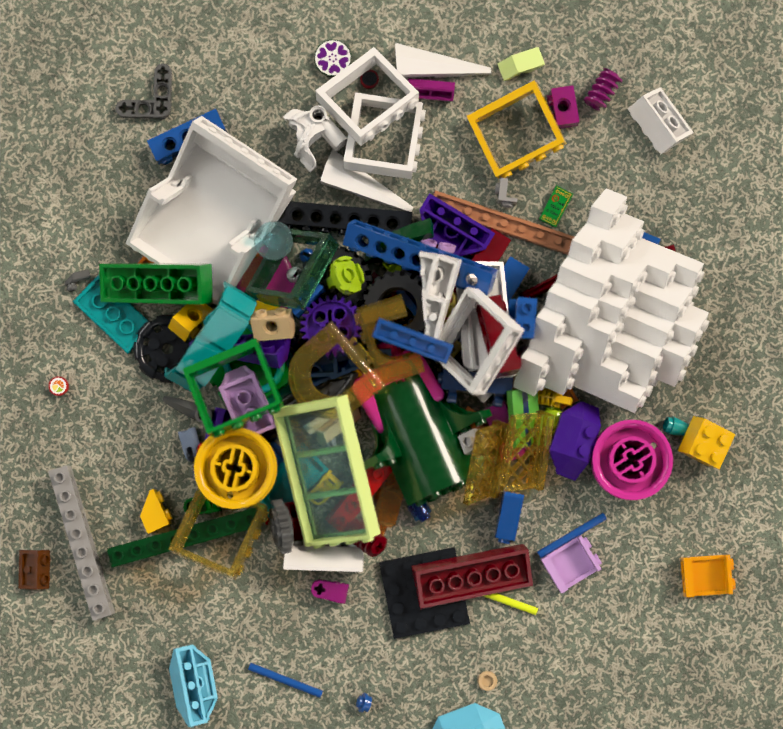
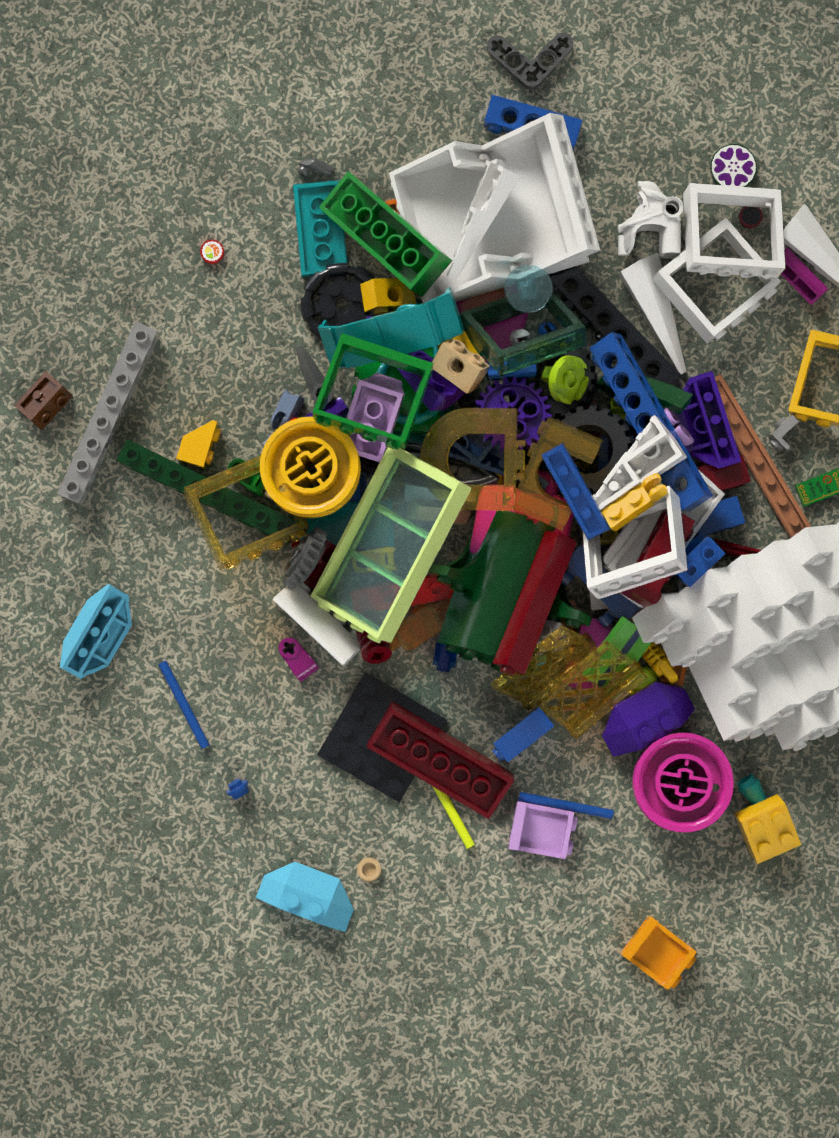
camera: 35 degrees right, 0 degrees up
(201, 206) = (490, 197): none -> white wedge
(447, 431) = (534, 603): none -> dark red brick
(454, 316) = (634, 502): none -> yellow hinge

